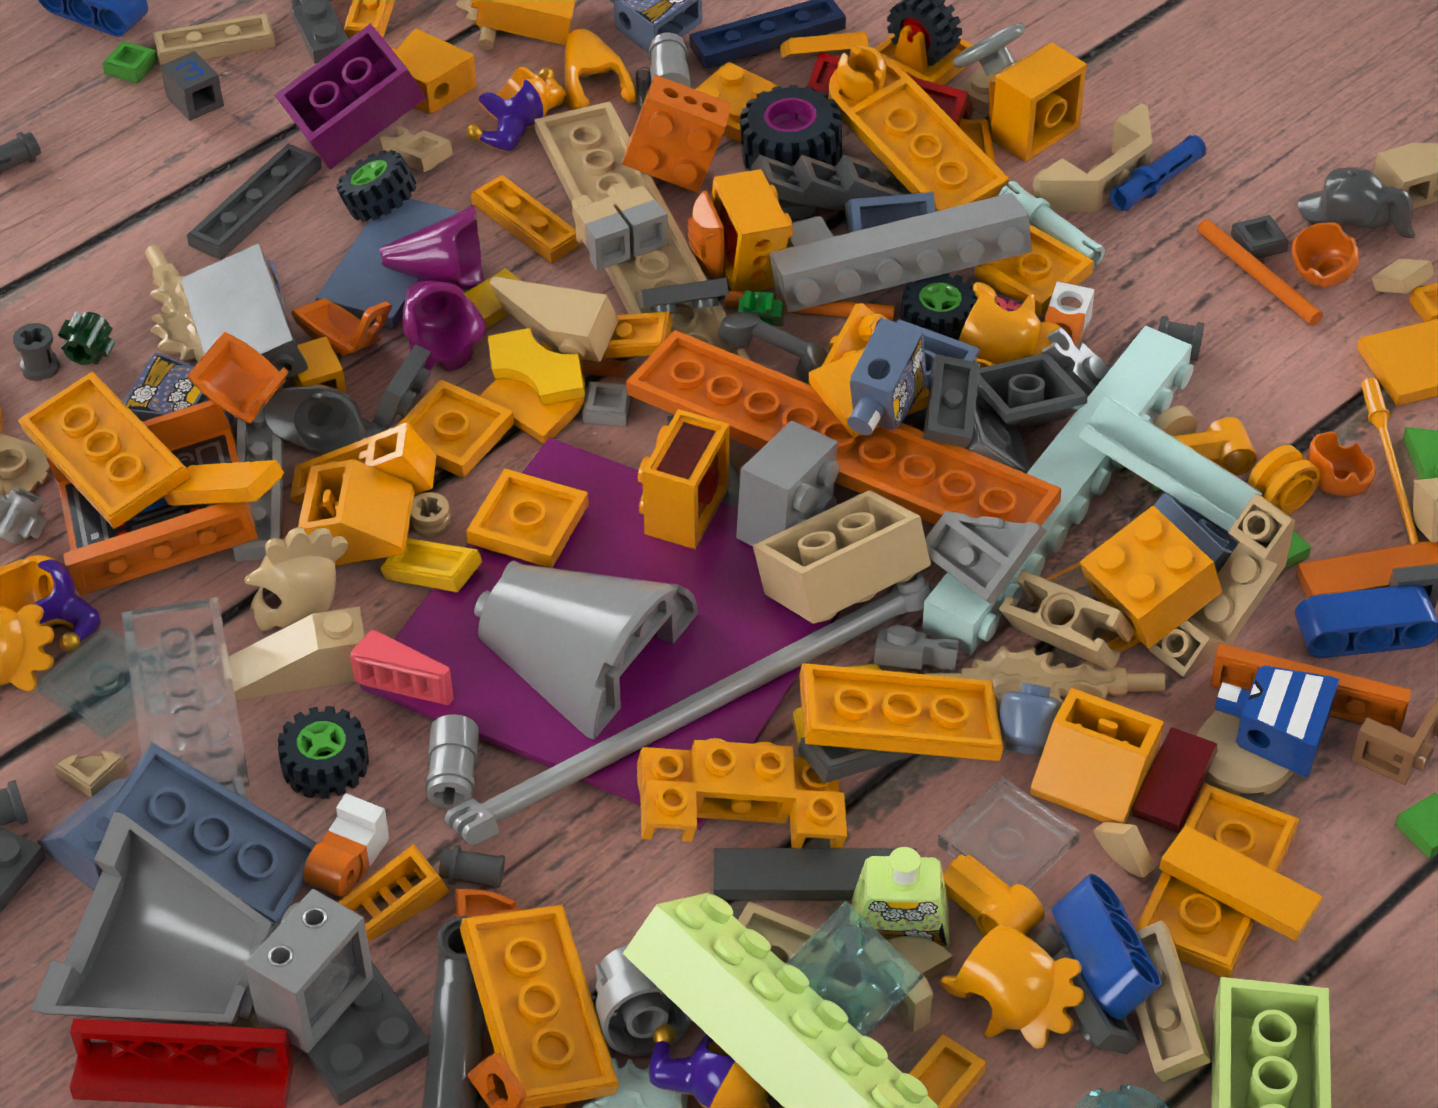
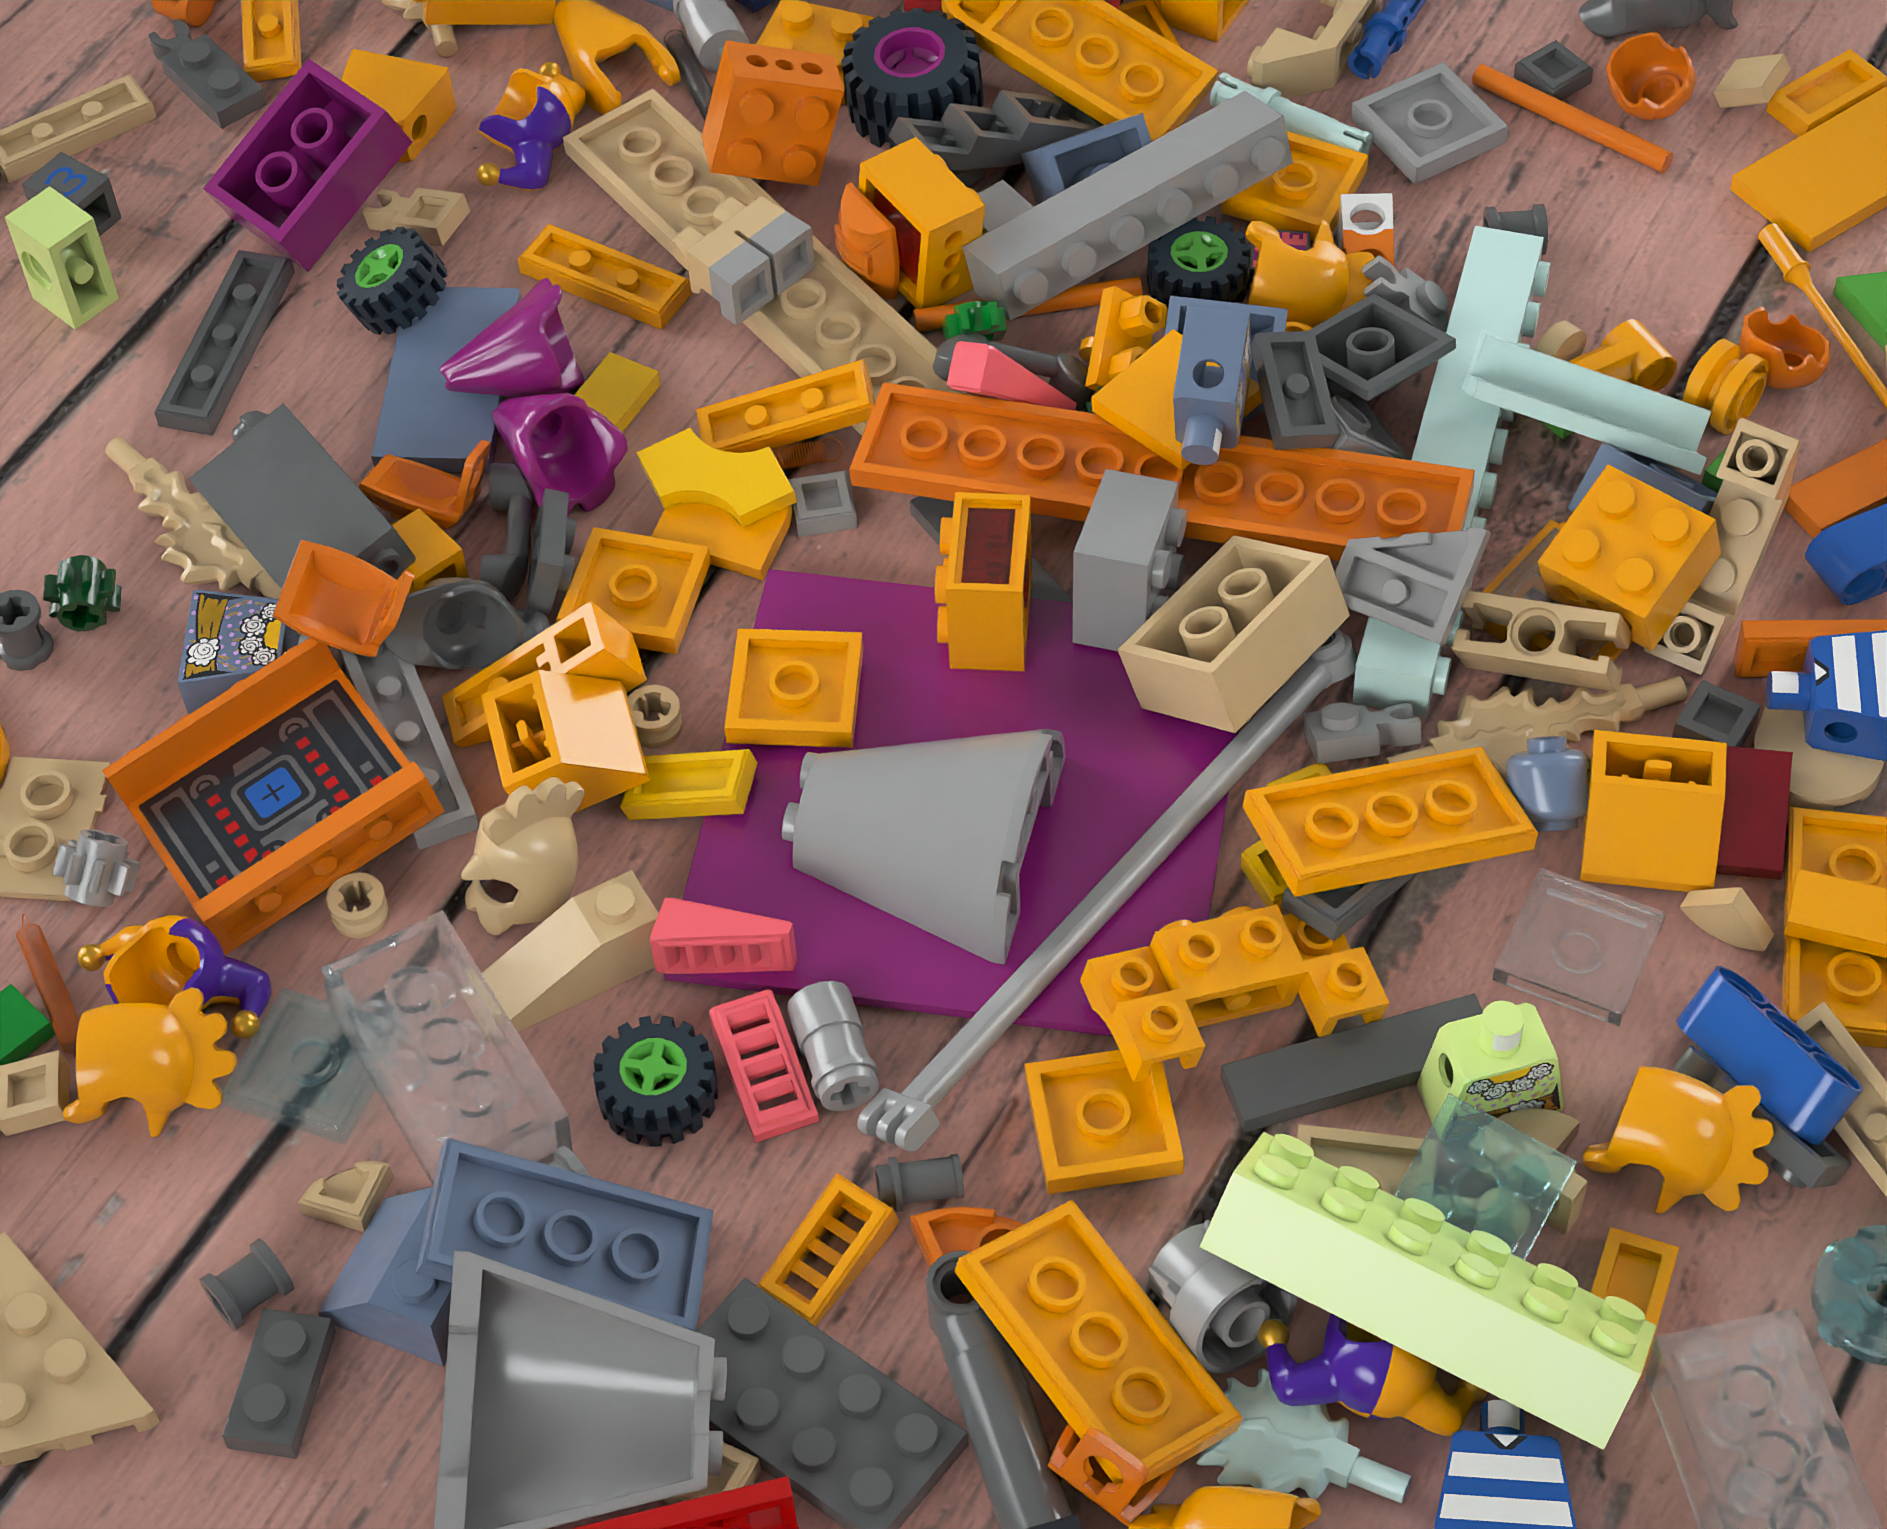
camera: 15 degrees left, 5 degrees up
(104, 449) = (188, 745): light orange tile -> none
(165, 119) = (62, 257): none -> yellowish green brick
(178, 574) = (357, 887): none -> tan bush
(226, 483) = (379, 750): light orange tile -> none
(309, 969) = (789, 1386): light grey piece -> none
(347, 847) = (745, 1200): leg -> none
(368, 393) = (509, 493): none -> dark grey bar
(400, 733) = (750, 1026): none -> coral slope
(560, 316) = (723, 402): tan slope -> none
(612, 864) = (1100, 1124): none -> light orange plate
(701, 293) = (894, 324): dark grey plate -> none
(750, 342) = (991, 374): none -> coral slope
(990, 898) = (1603, 1039): light orange piece -> none
(1150, 250) = (1429, 123): none -> light grey plate
(1177, 707) = (1716, 716): none -> dark grey plate

